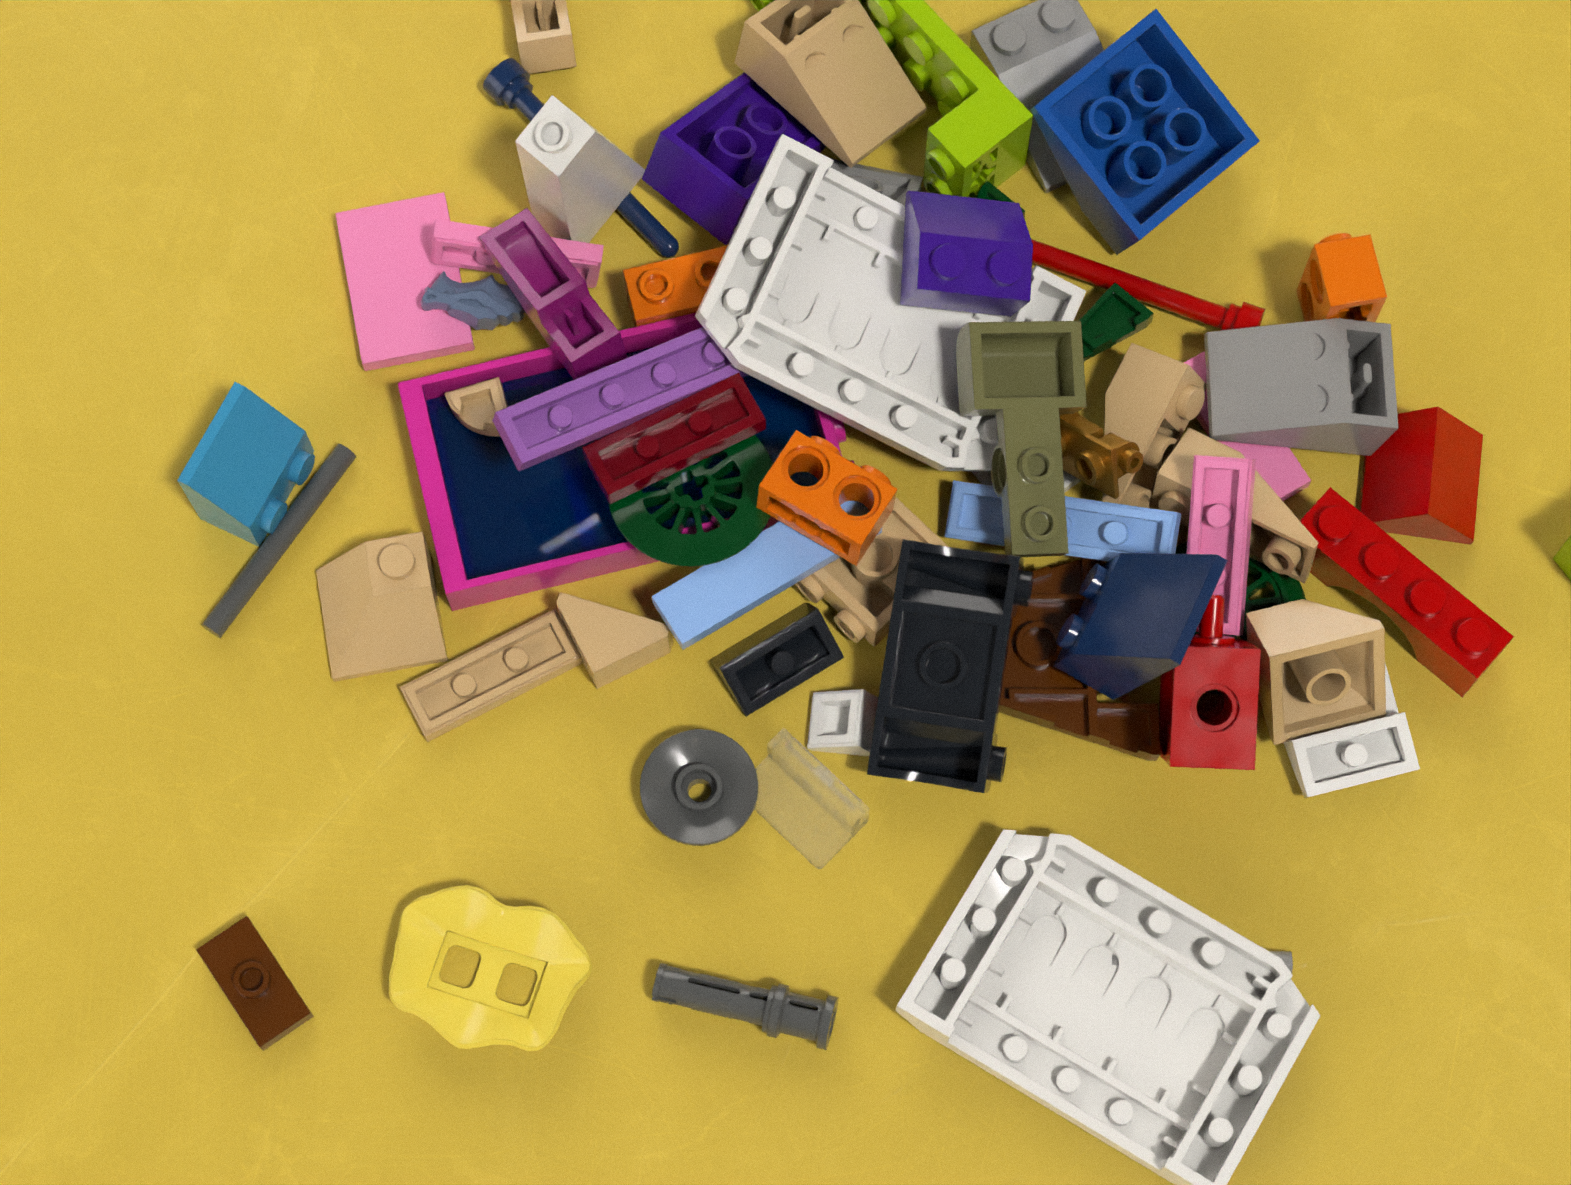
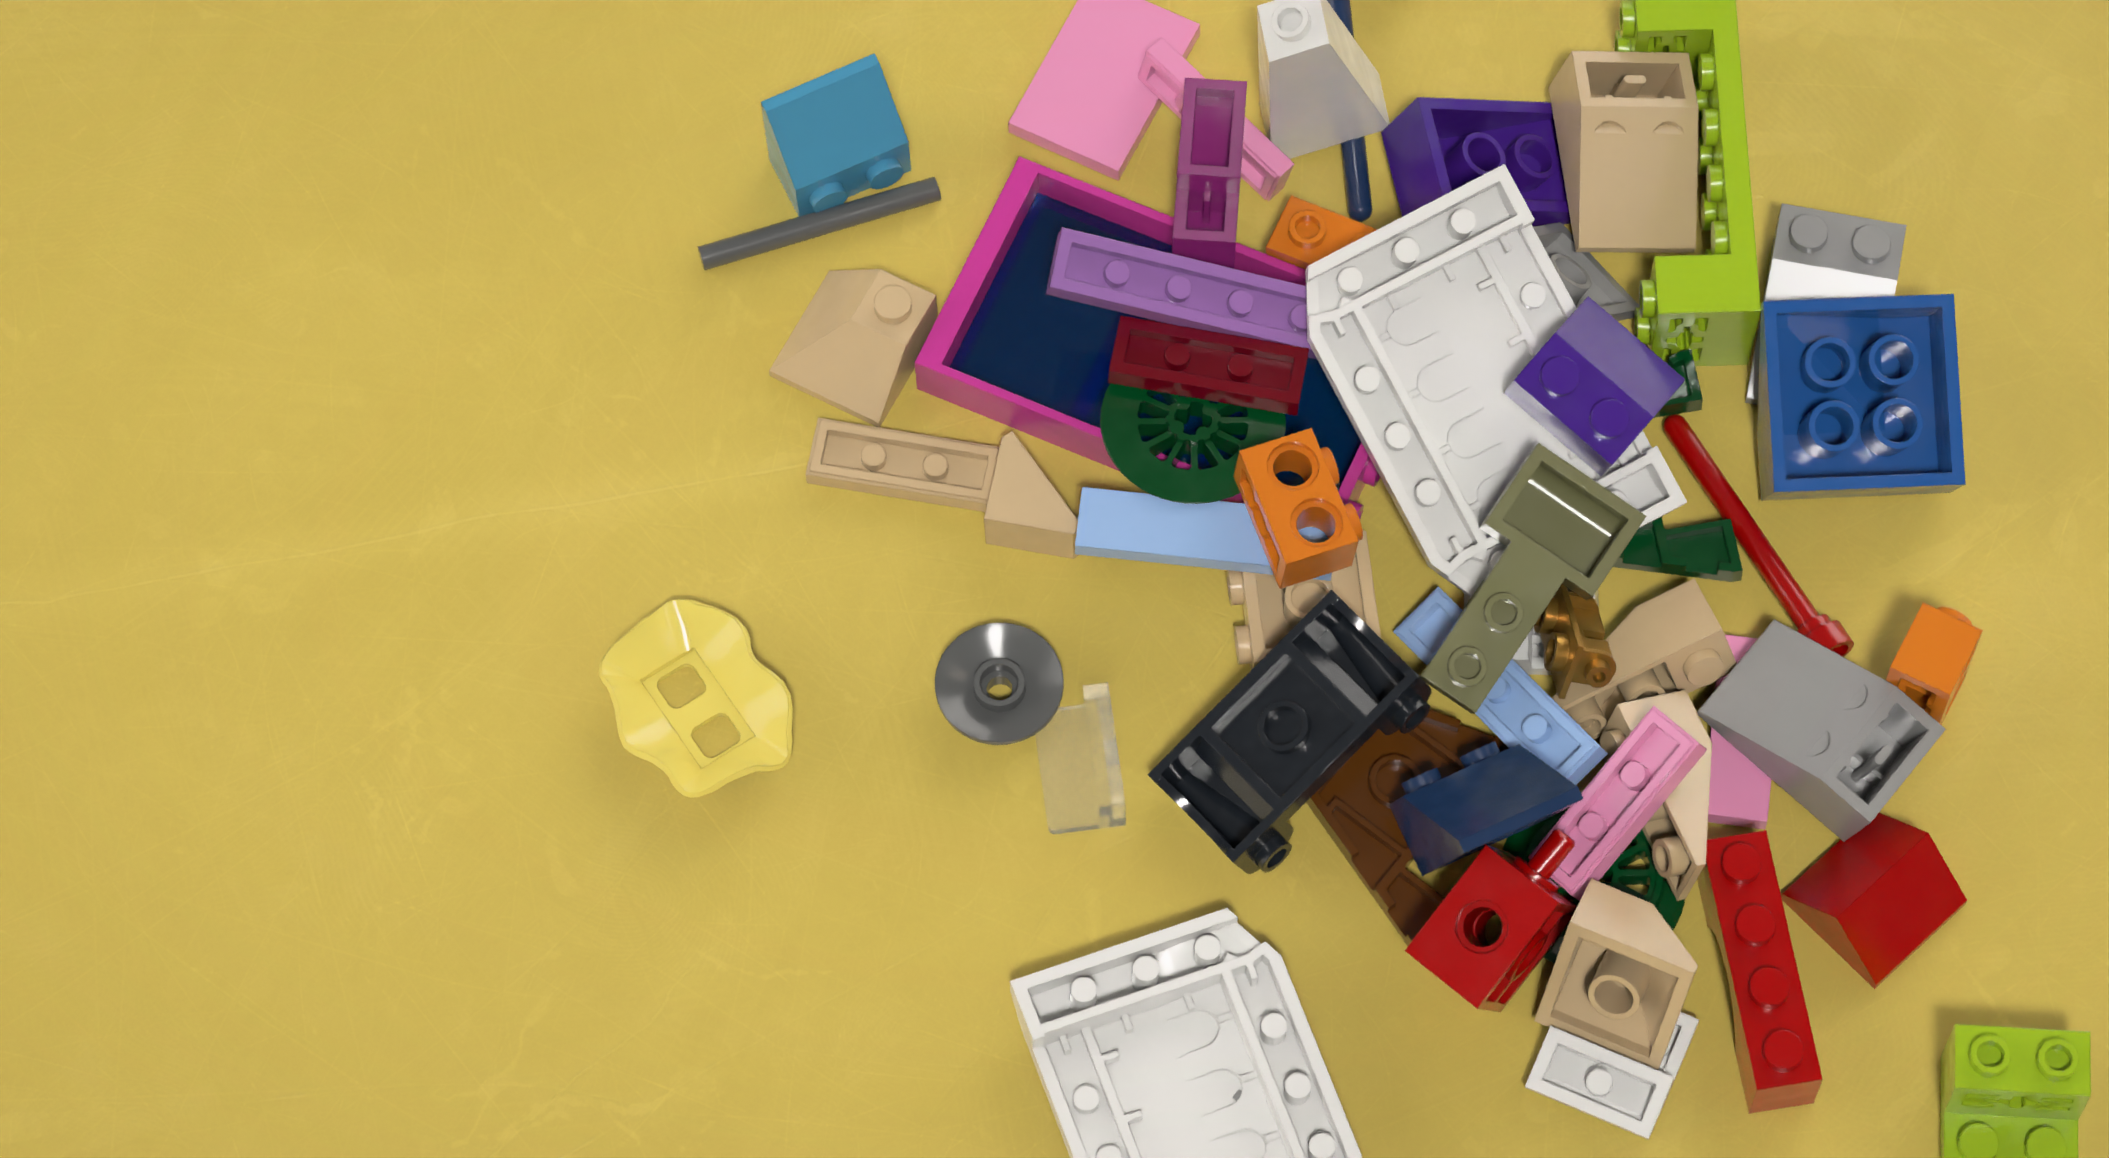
camera: 40 degrees right, 5 degrees down
(255, 983) = (503, 573): reddish brown plate -> none
(477, 303) = (1150, 140): sand blue piece -> none
(477, 404) = (1078, 217): tan tile -> none
(772, 1009) = (909, 913): dark grey pin -> none
(777, 658) = (1160, 630): black slope -> none
(842, 722) = (1166, 719): white slope -> none

